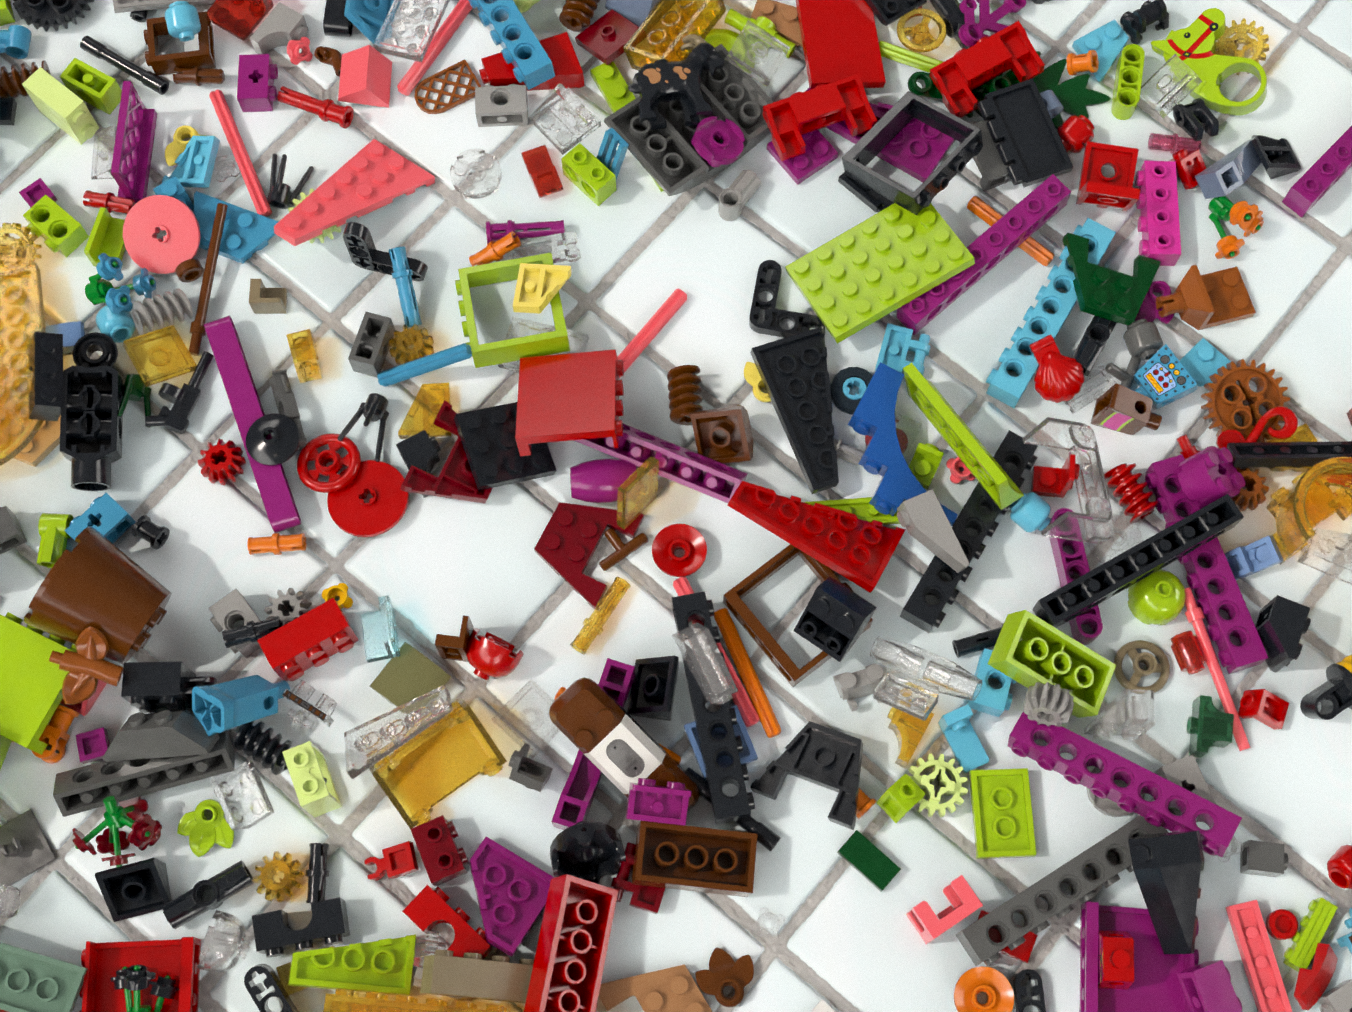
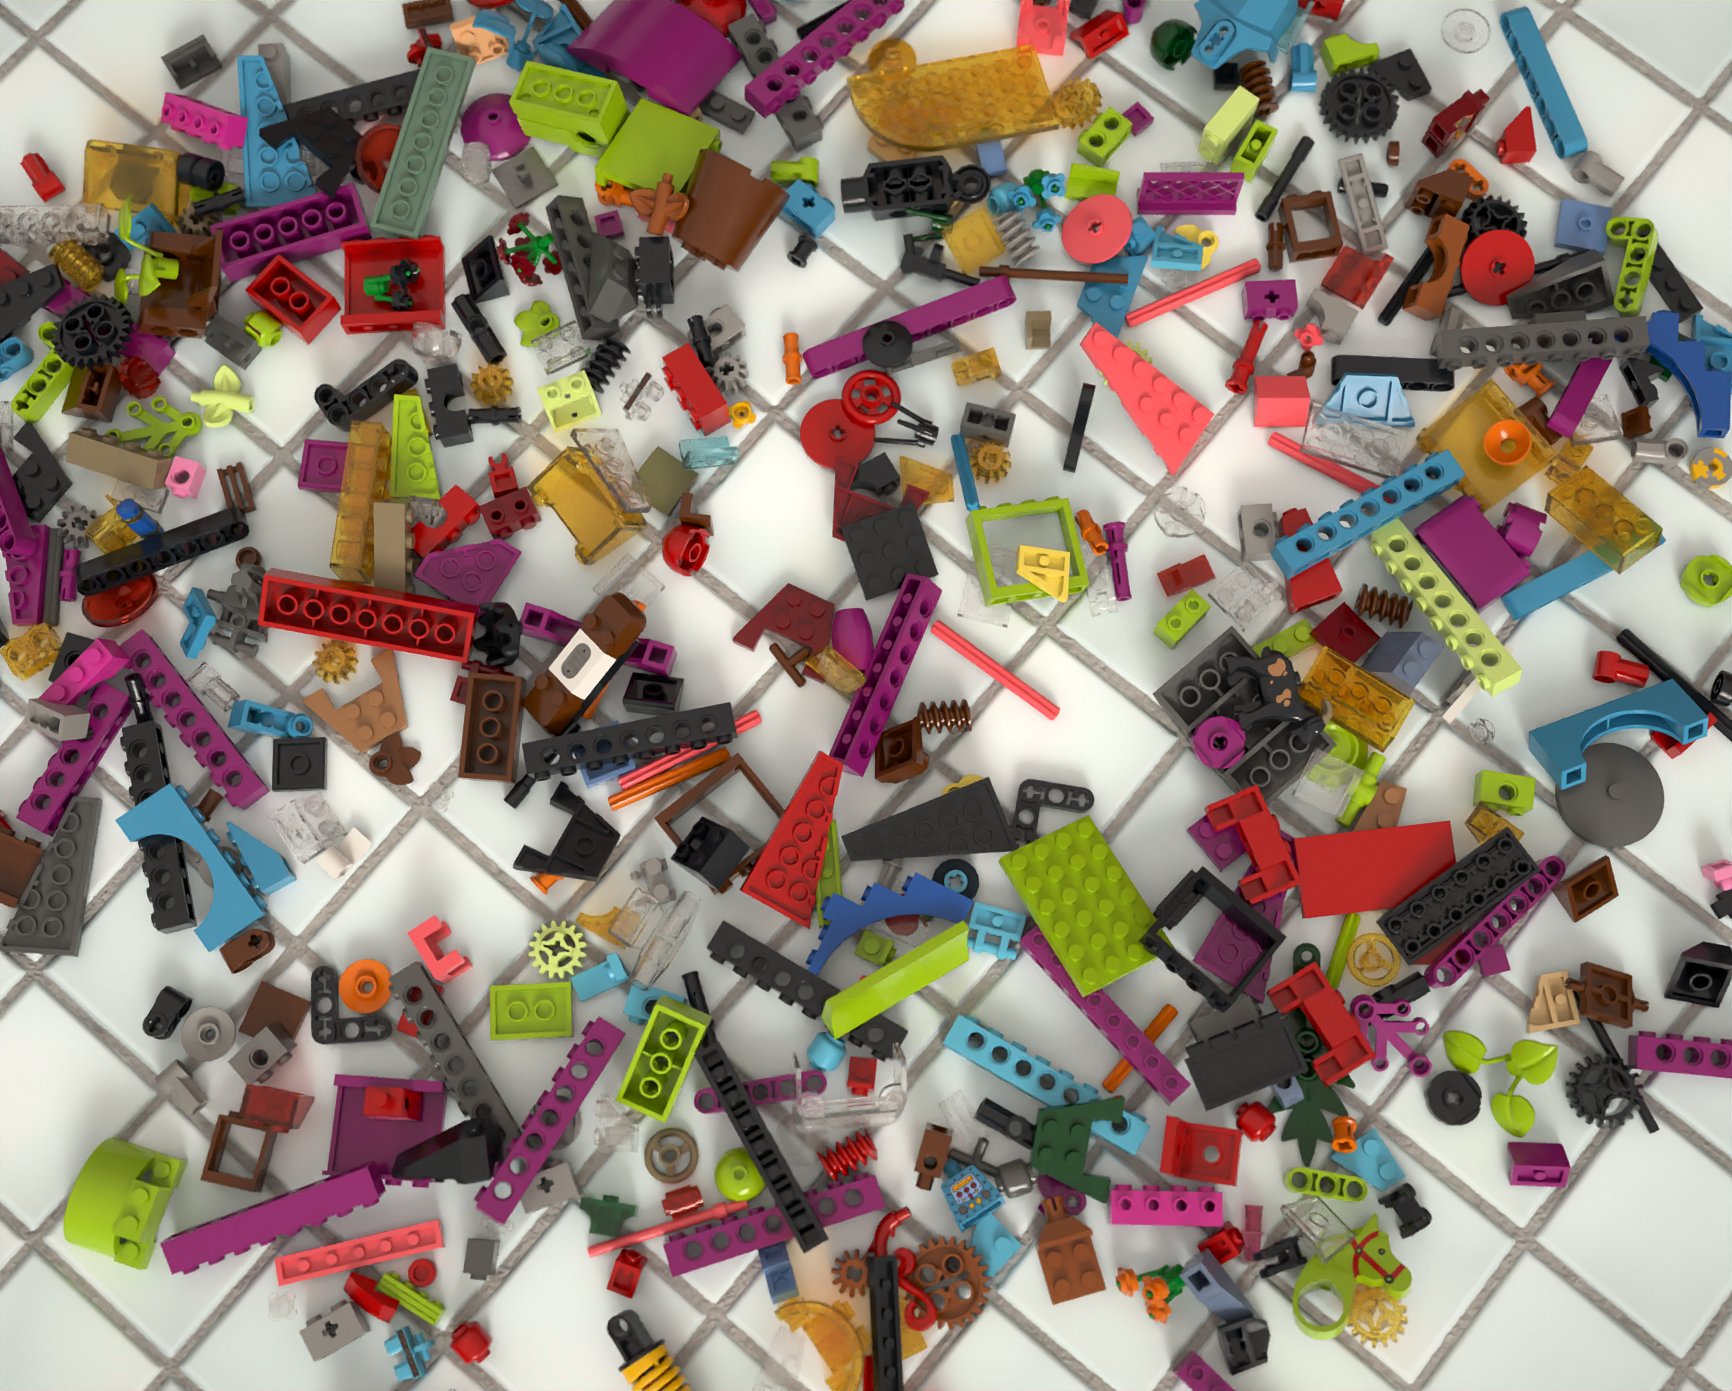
camera: 90 degrees right, 5 degrees up
(46, 362) = (937, 142): black arch -> none
(108, 201) = (1132, 180): red axle -> none
(182, 20) = (1324, 221): medium azure head -> none
(189, 270) = (1062, 258): reddish brown tile -> none
(221, 462) = (867, 296): red gear -> none
(236, 702) = (637, 334): dark azure piece -> none
(279, 192) = (1148, 332): black plant -> none
(406, 292) = (1058, 446): dark azure pin -> none
(447, 106) = (1268, 498): dark orange window -> none
(527, 771) = (578, 586): dark grey bracket -> none
(569, 398) = (926, 603): red panel -> none
(594, 624) = (715, 639): clear yellow pin -> none
(608, 151) = (1201, 639): dark azure tile -> none
(657, 802) = (535, 690): magenta bracket -> none
(675, 538) = (786, 701): red dish -> none
(706, 663) = (661, 728): clear slope -> none
(738, 194) = (1170, 768): light grey piece -> none
(868, 860) = (492, 888): dark green tile -> none
(900, 798) = (546, 916): lime bracket -> none
(930, 527) = (799, 942): light grey slope -> none
(1048, 704) = (620, 1049): light grey gear -> none
(1057, 376) = (970, 1083): red animal -> none
(1210, 476) = (855, 1230): magenta brick -> none
(1280, 630) = (701, 1292): black slope -> none

